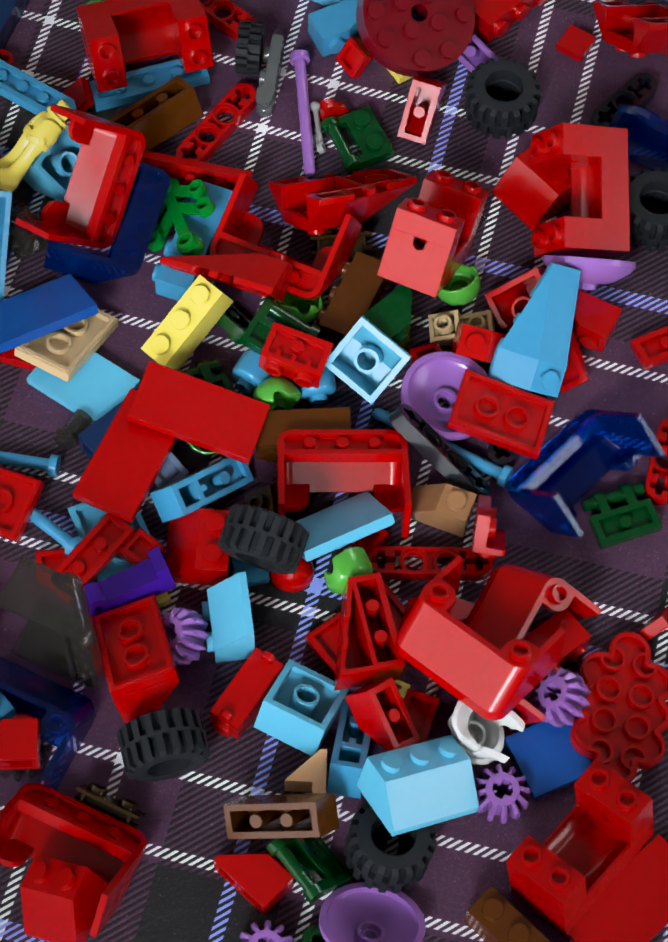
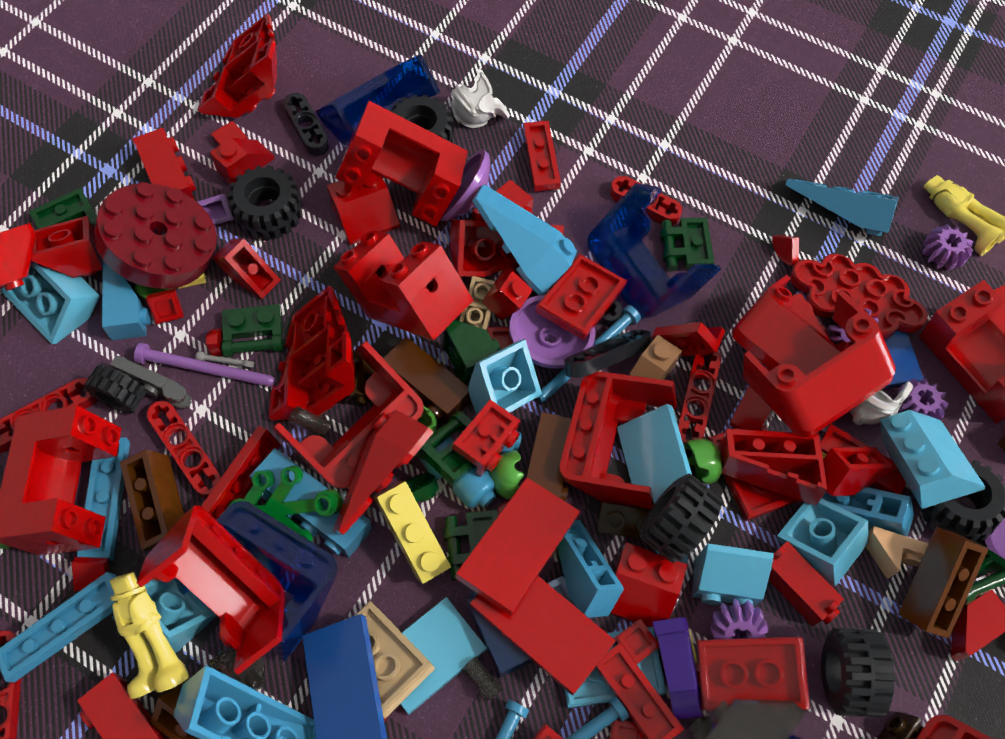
camera: 75 degrees left, 0 degrees up
(274, 214) = (313, 423): none -> clear smoke pin
(551, 60) = (239, 155): none -> red slope

